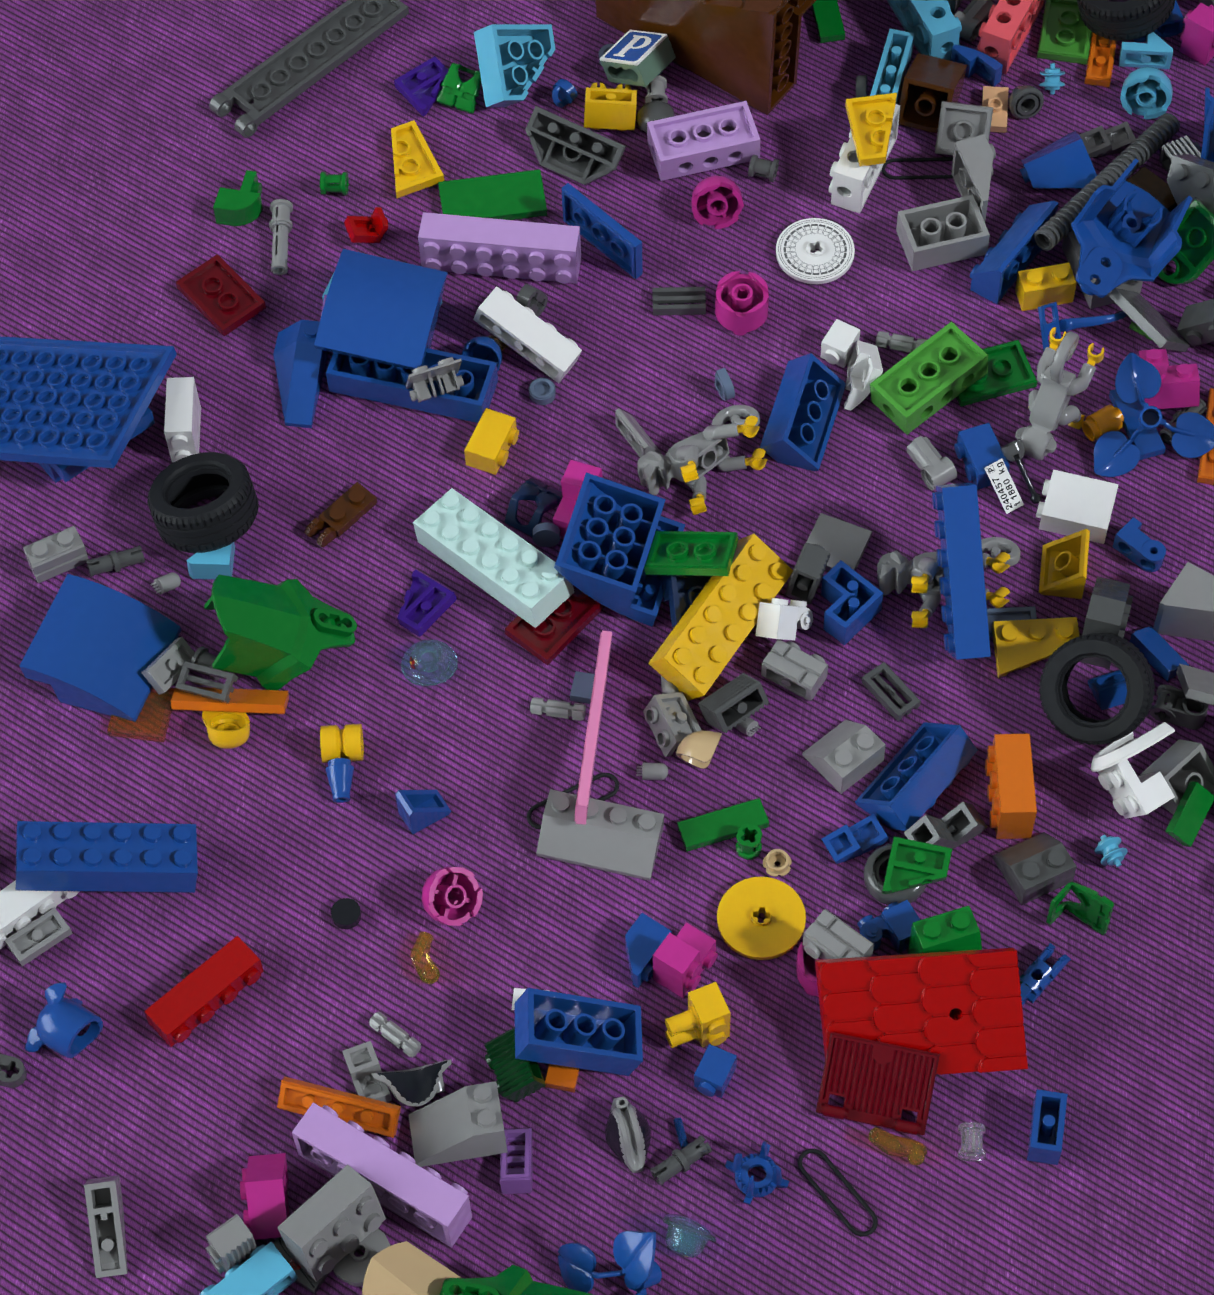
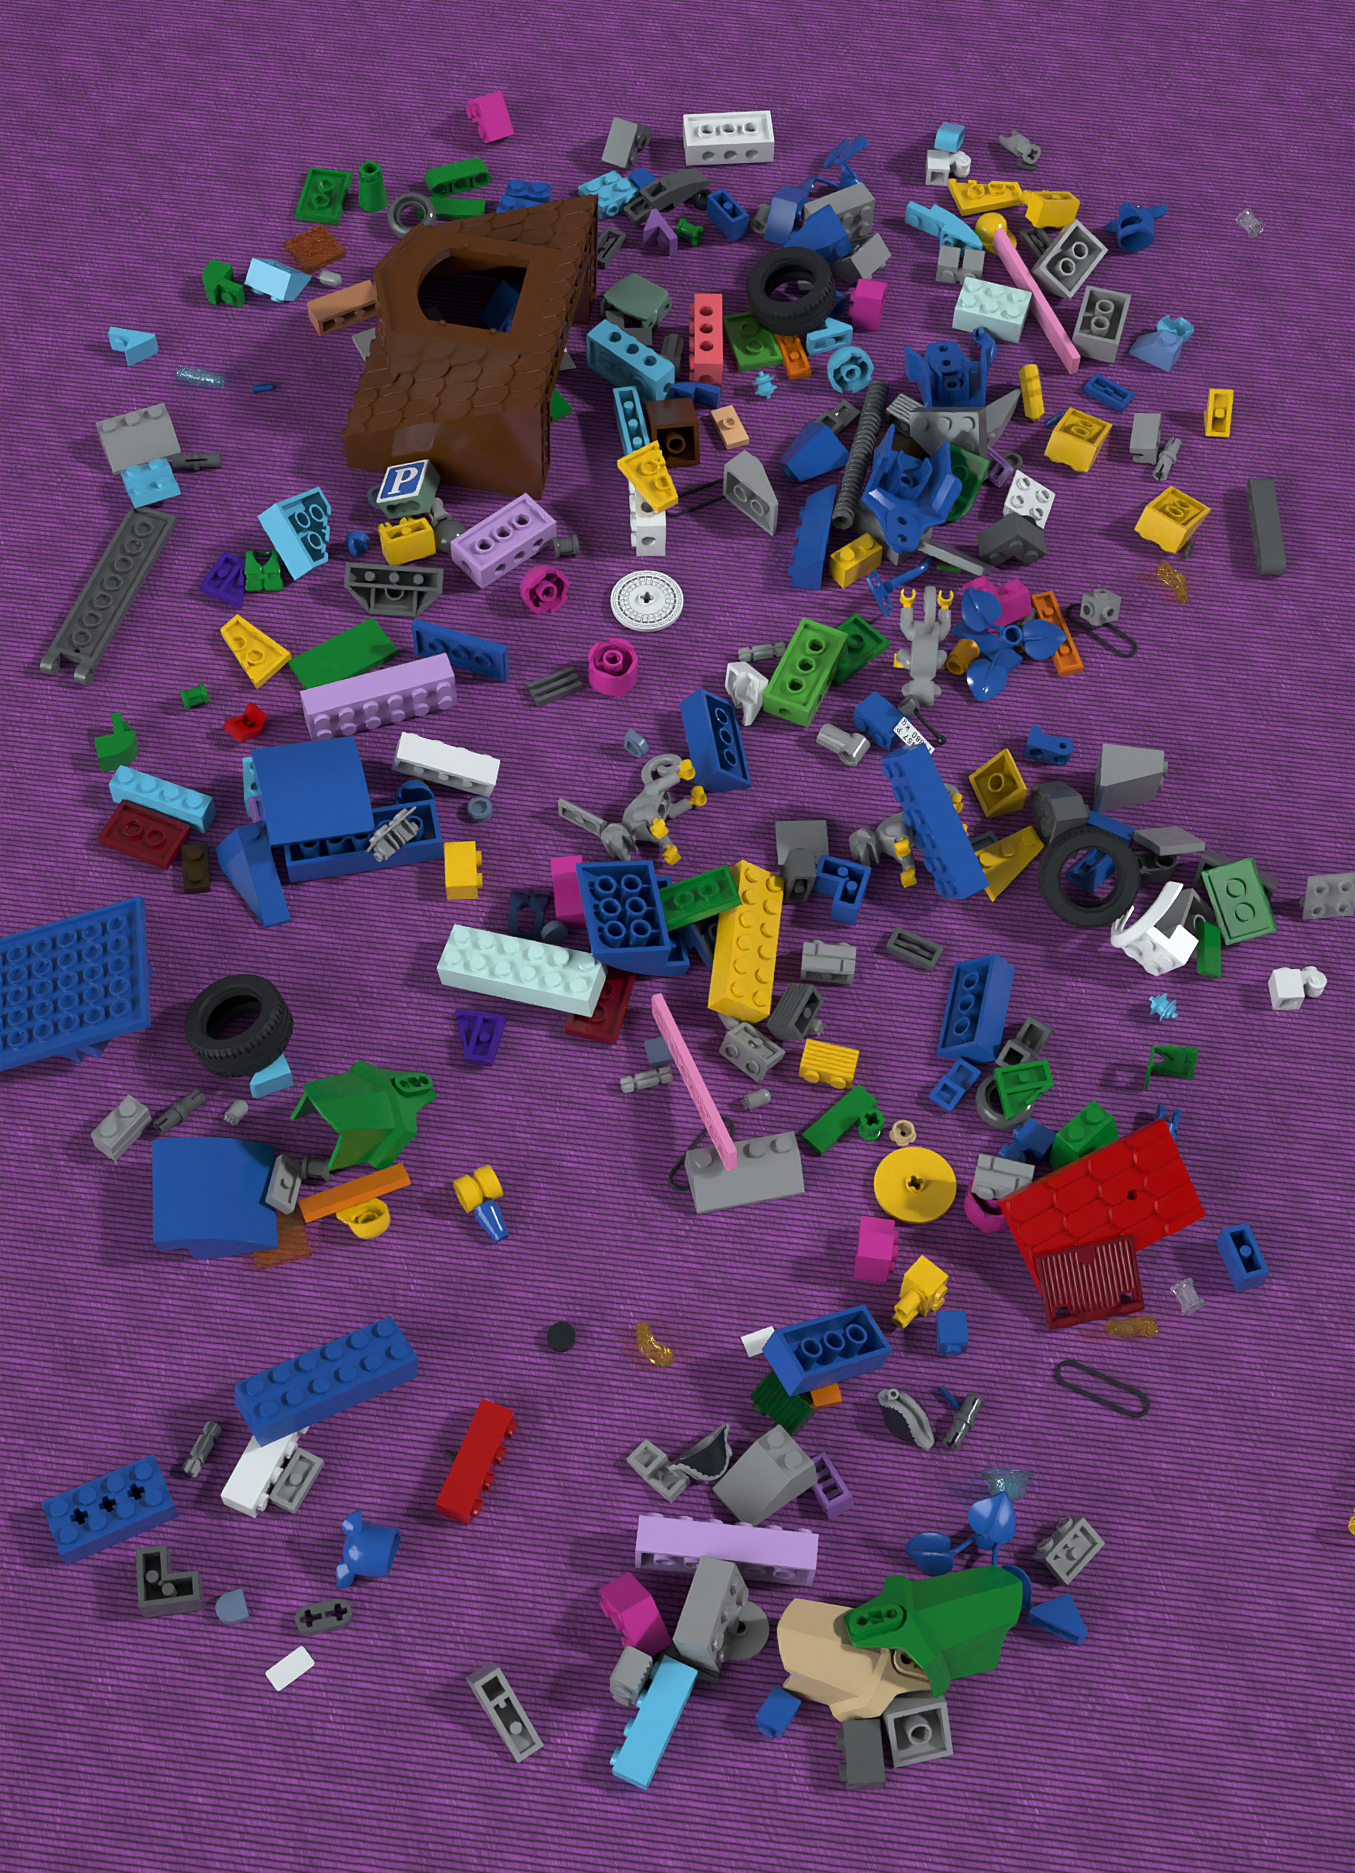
camera: 30 degrees left, 0 degrees up
(182, 417) = (175, 959): white brick -> none
(226, 688) = (304, 1188): dark grey tile -> none
(251, 344) = (196, 868): none -> dark brown plate
(254, 268) = (163, 798): none -> medium azure brick
(281, 227) = (166, 753): light grey pin -> none
(341, 514) = (362, 986): reddish brown hinge -> none
(369, 1113) = (625, 1512): orange tile -> none
(395, 1034) = (663, 1423): light grey axle -> none
(421, 808) = (577, 1216): blue slope -> none
(429, 663) = (511, 1086): clear light blue hat -> none
(452, 895) = (650, 1280): dark pink cylinder -> none
(532, 298) = (432, 730): dark grey beam -> none
(640, 944) = (834, 1252): blue slope -> none
(699, 748) = (790, 1061): tan helmet -> none
(740, 766) = (828, 1064): none -> yellow brick
(748, 1185) = (1043, 1411): blue piece -> none
(782, 620) = (798, 924): white brick -> none
(839, 343) = (713, 671): white brick -> none
(846, 754) = (907, 1016): light grey slope -> none
(861, 86) = (611, 448): dark grey tile -> none
(942, 232) = (748, 546): light grey brick -> none
(961, 122) = (714, 450): light grey tile -> none
(1011, 786) = (1061, 986): orange brick -> none
(1025, 101) = (753, 411): dark grey brick -> none
(1036, 867) = (1111, 1045): dark grey slope -> none
(1076, 505) = (980, 732): white brick -> none

